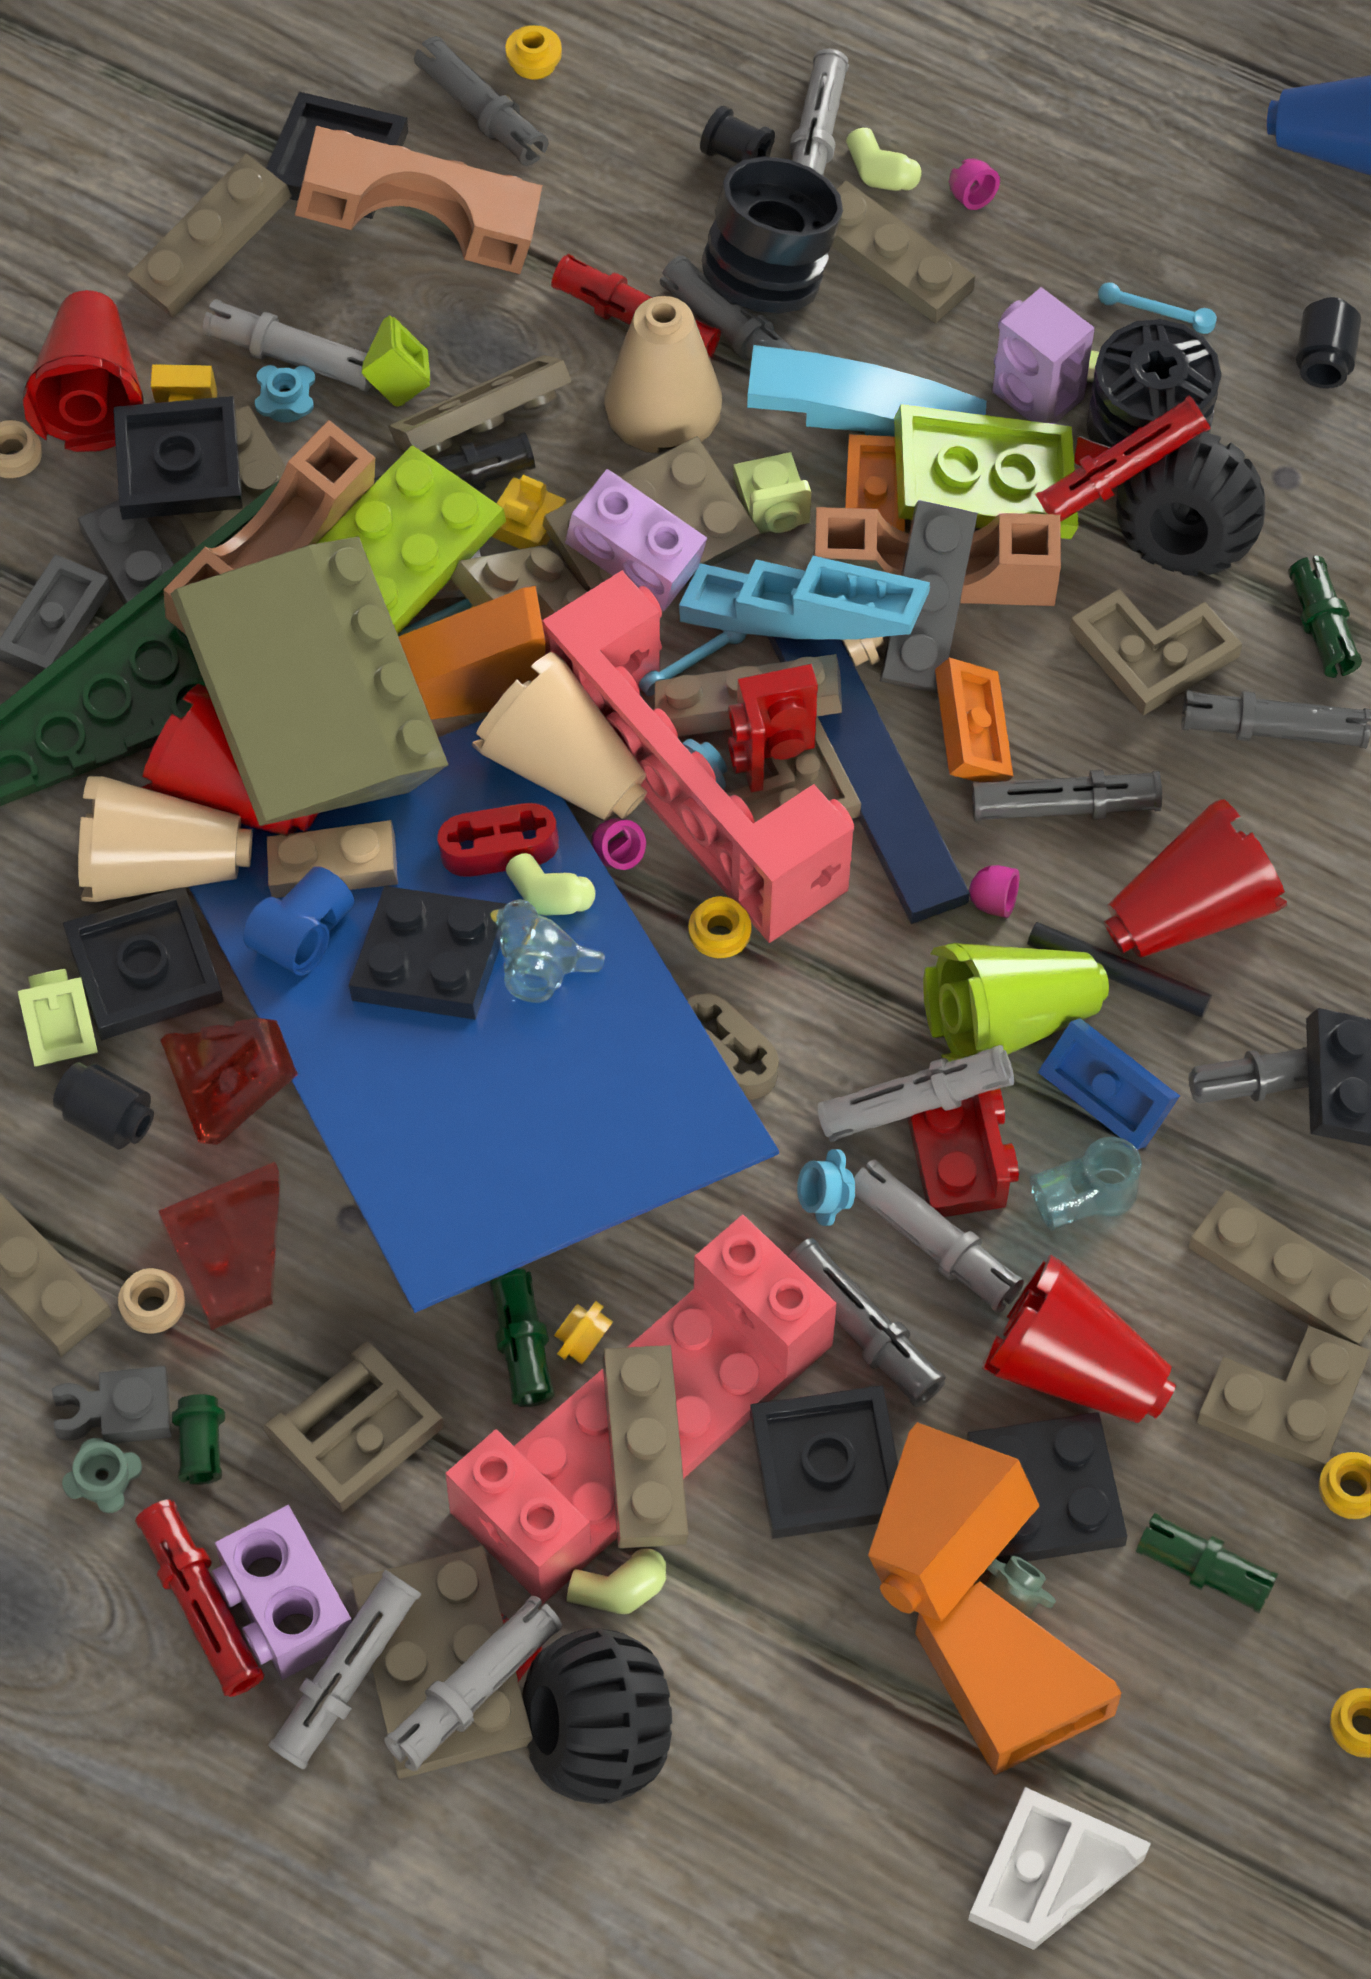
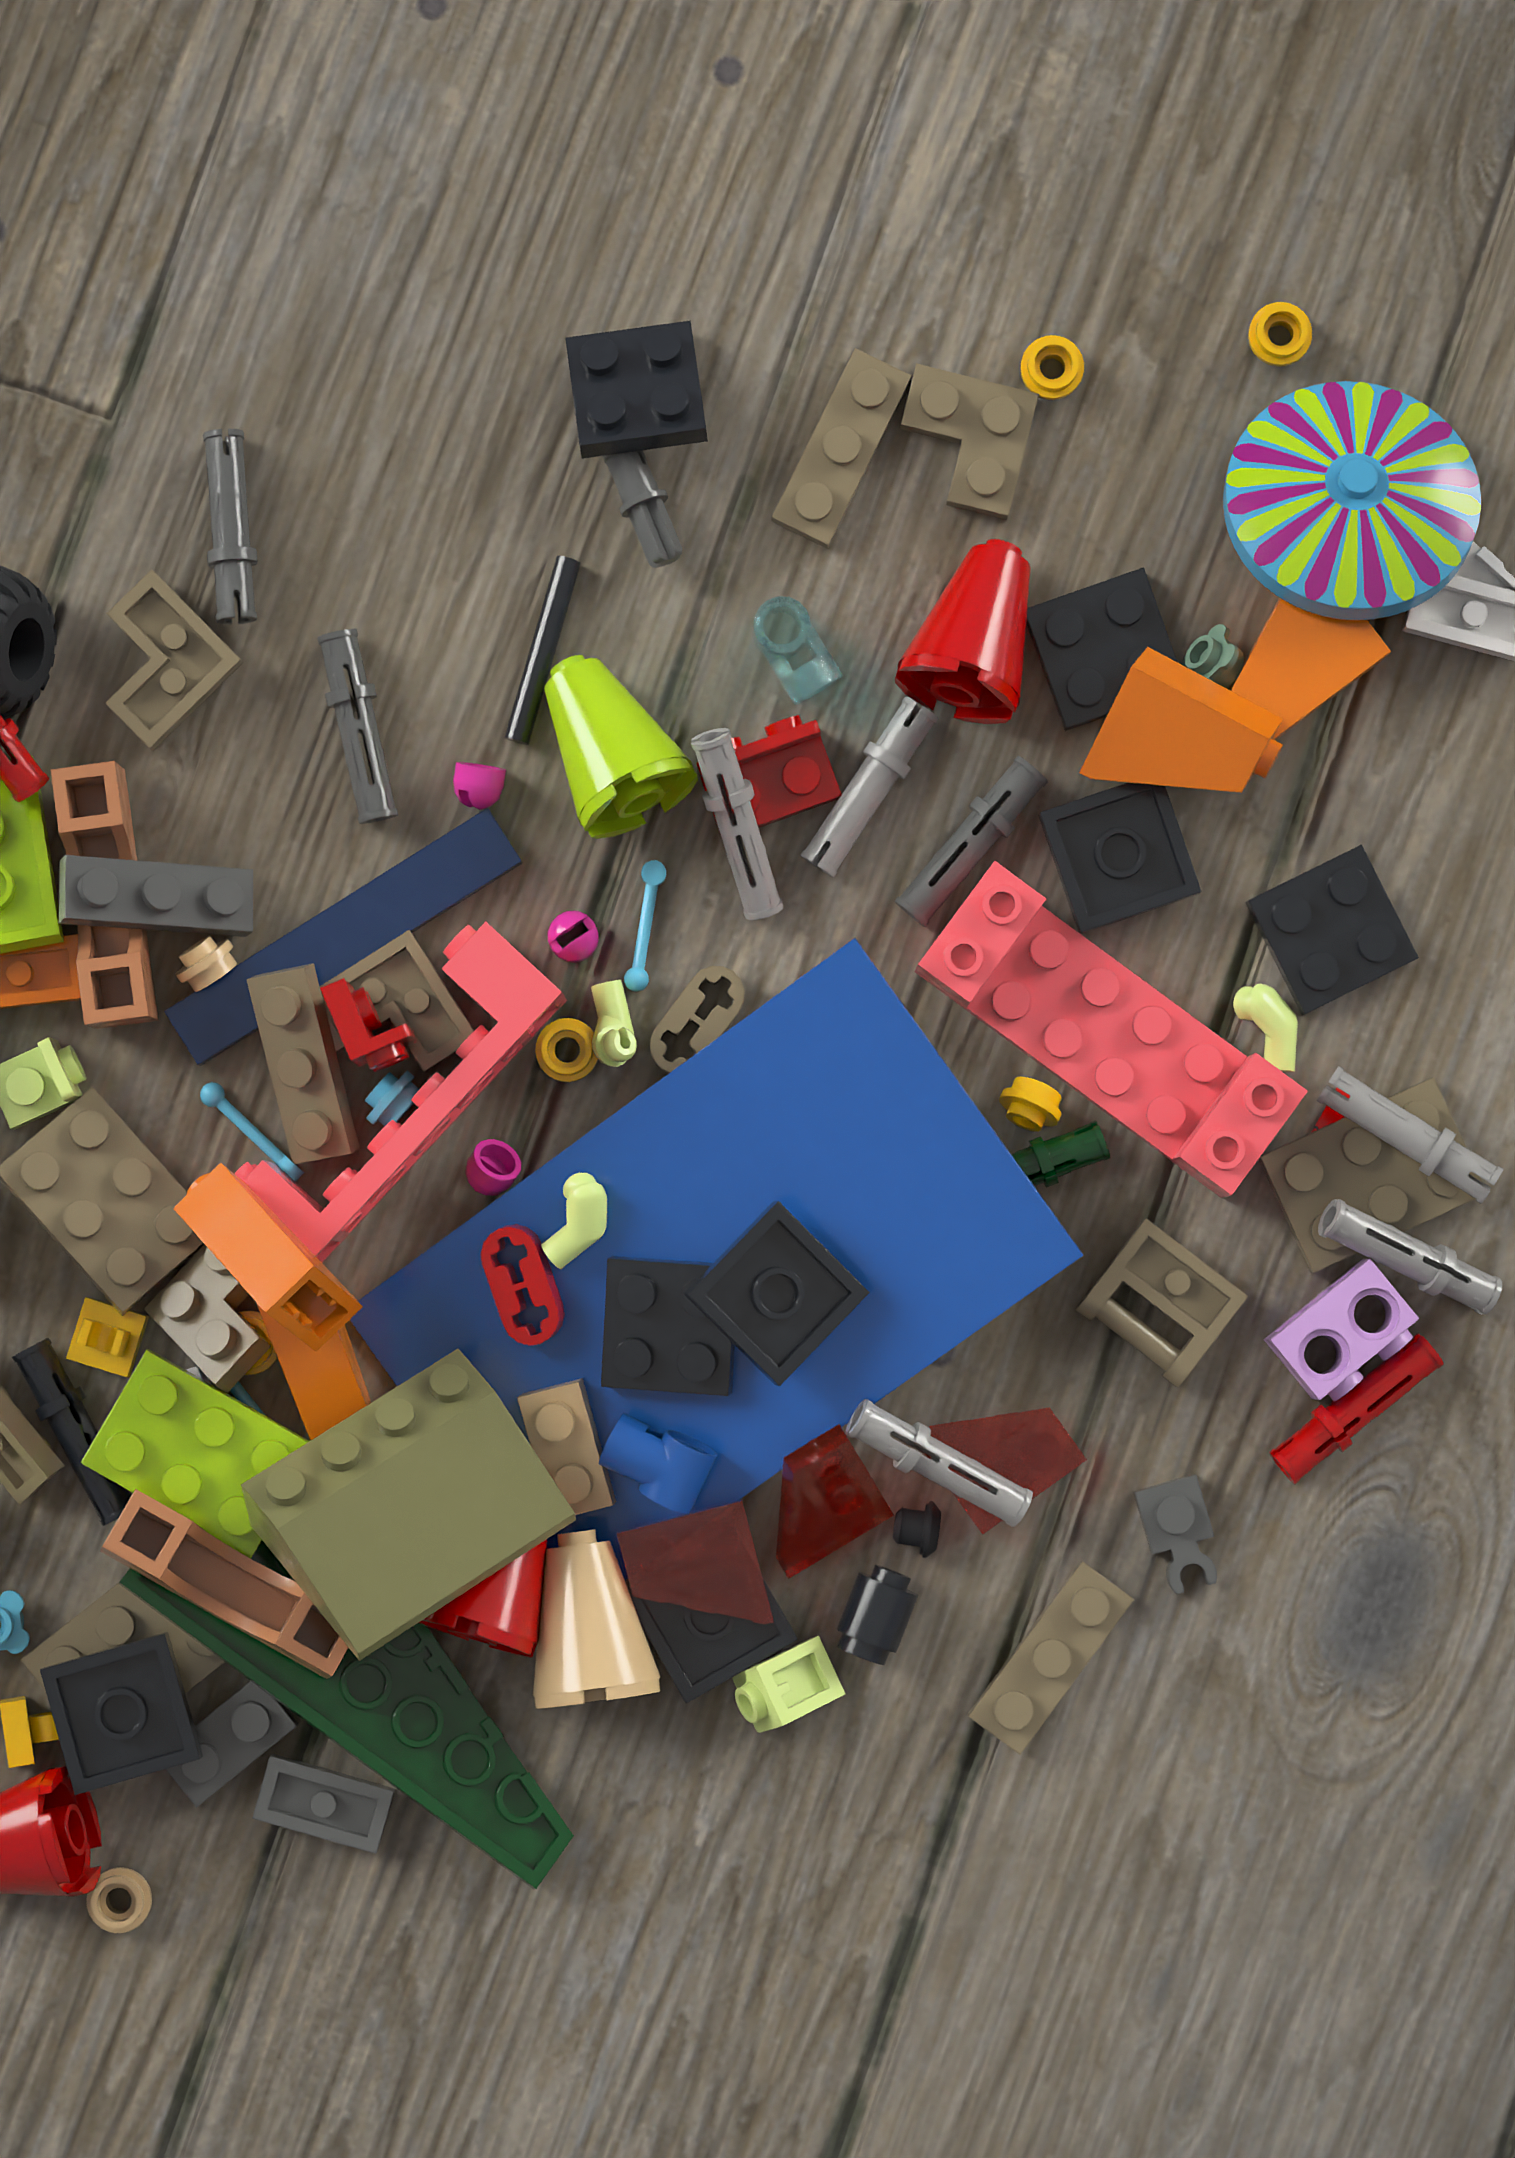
camera: 100 degrees left, 25 degrees up
(98, 1456) = (1265, 1516): sand green plate -> none
(147, 1284) = (1088, 1522): tan plate -> none
(179, 1162) = (918, 1528): none -> black piece
(193, 944) = (698, 1563): none -> clear red wing
(199, 1438) = (1201, 1444): dark green pin -> none
(238, 1164) = (874, 1428): none -> light grey pin
(438, 1025) = (776, 1293): none -> black plate
(538, 952) = (664, 1216): clear light blue animal -> none
(560, 582) = (266, 1257): none -> orange slope
(562, 742) = (408, 1238): tan cone -> none
(597, 1715) = (1405, 1021): black wheel -> none
(634, 534) = (144, 1219): lavender brick -> none
(645, 1447) = (1148, 1021): dark tan plate -> none
(717, 1663) = (1331, 930): none -> black plate
(732, 970) = (614, 1034): none -> yellowish green arm
(817, 603) = (189, 1021): medium azure slope -> none
(820, 957) = (581, 947): none -> dark pink hinge
(826, 1187) = (839, 897): medium azure plate -> none
(879, 1034) = (653, 875): none -> medium azure hinge
(973, 722) = (290, 830): orange plate -> none
(1108, 1083) = (680, 642): blue plate -> none
(1171, 1750) = (1351, 500): none -> dish
(1196, 887) = (455, 583): red cone -> none
(1206, 1562) = (1153, 492): dark green pin -> none
(1324, 616) = (93, 490): dark green pin -> none

